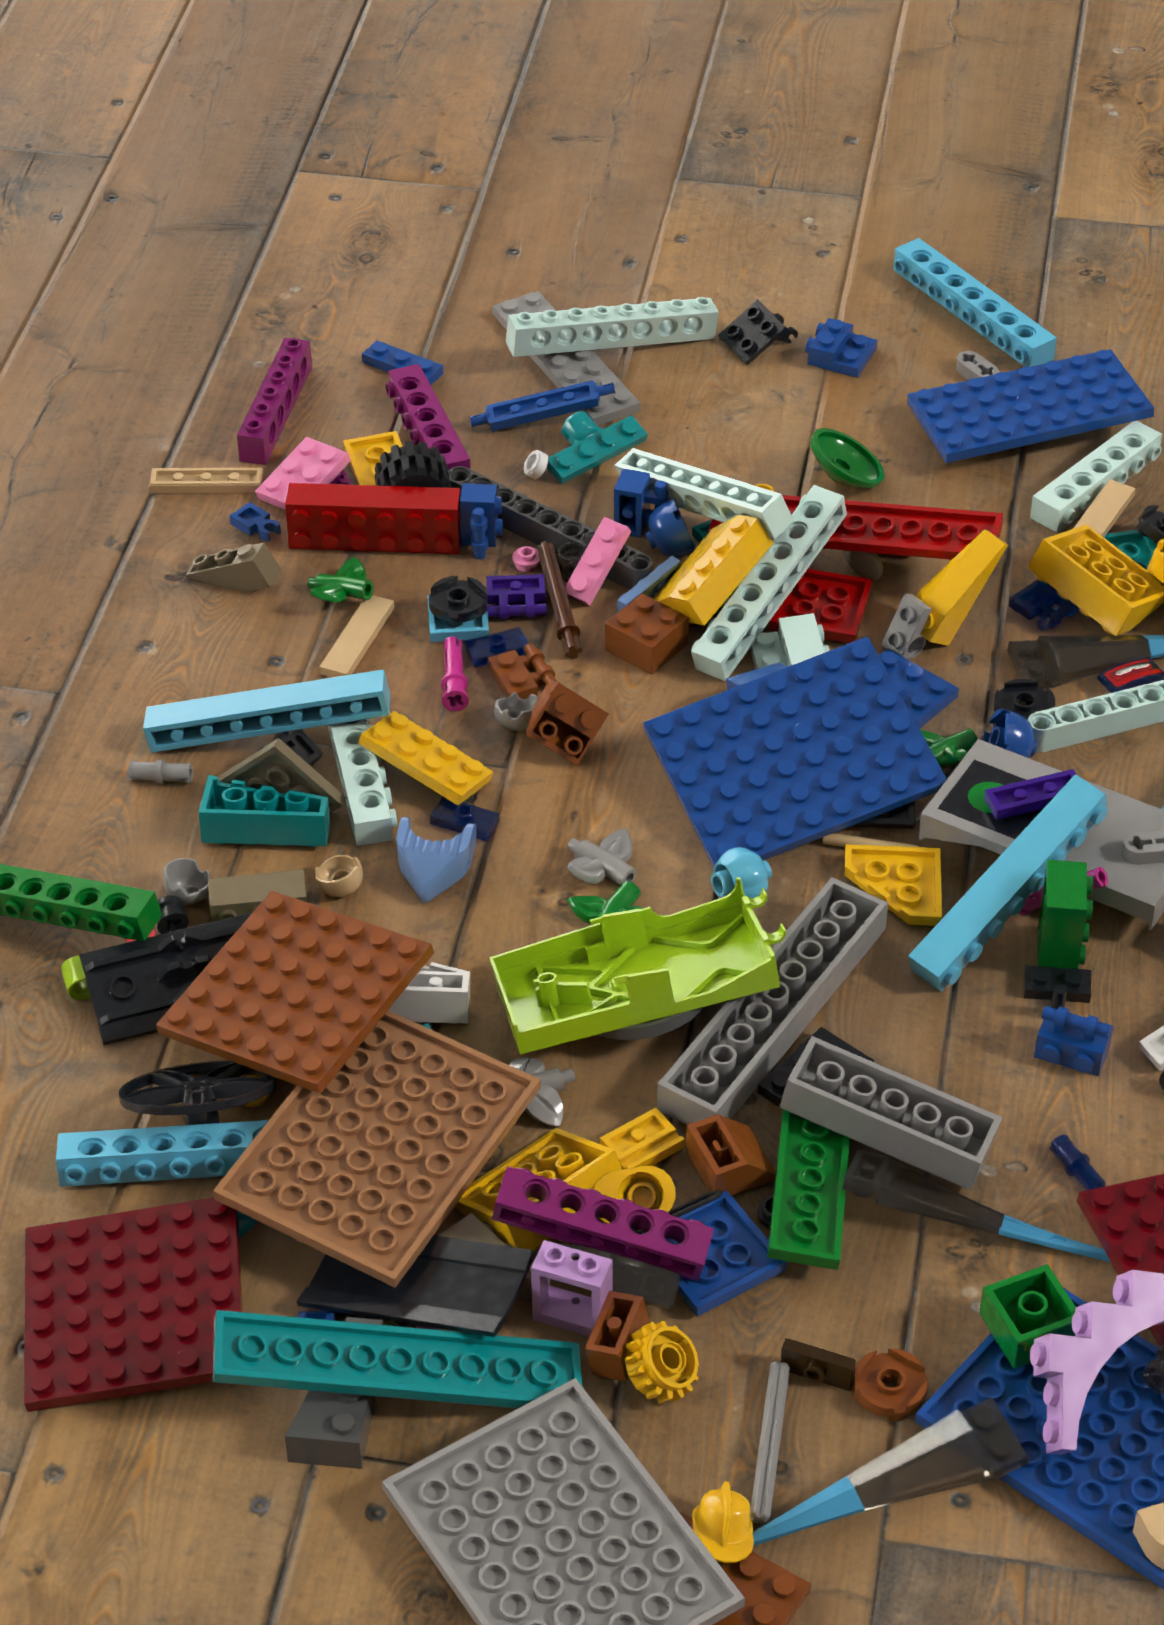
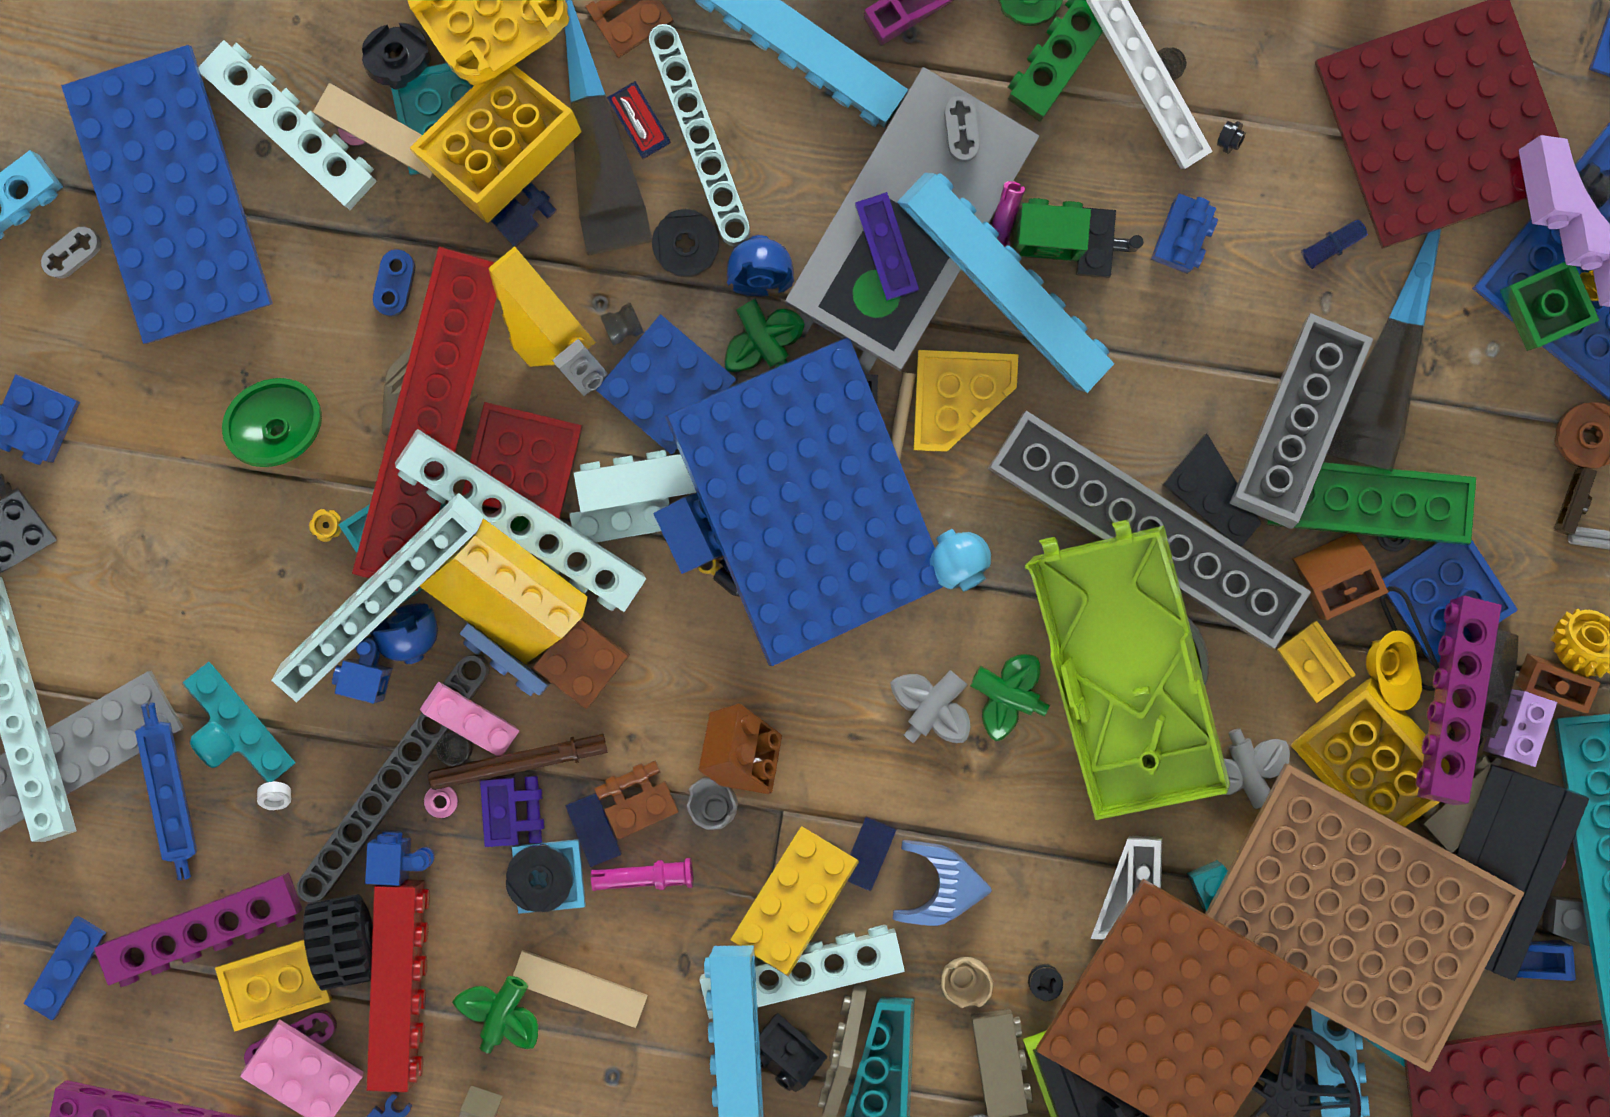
camera: 90 degrees left, 45 degrees up
(945, 660) = (622, 324): none -> clear smoke wheel

